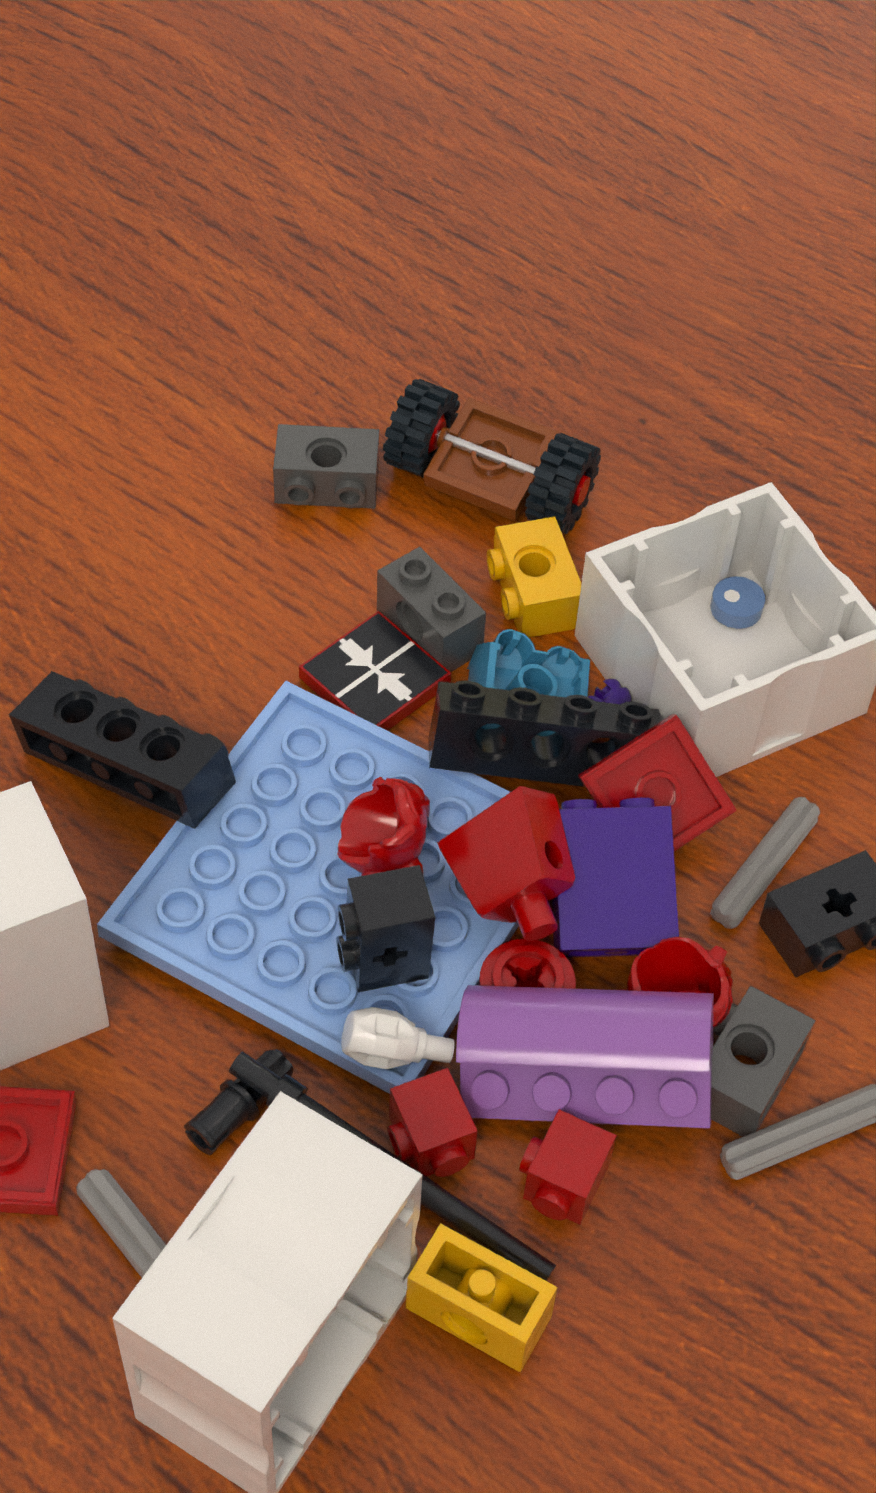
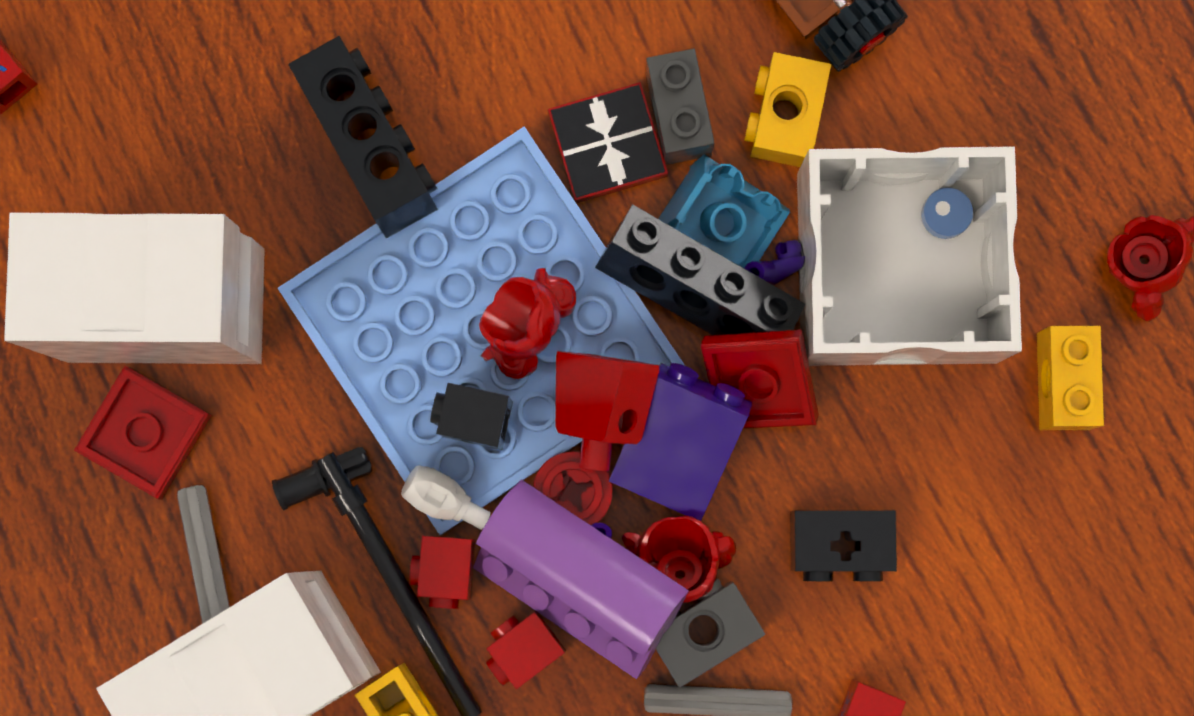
camera: 35 degrees right, 30 degrees up
(765, 862) = (823, 466): light grey axle -> none

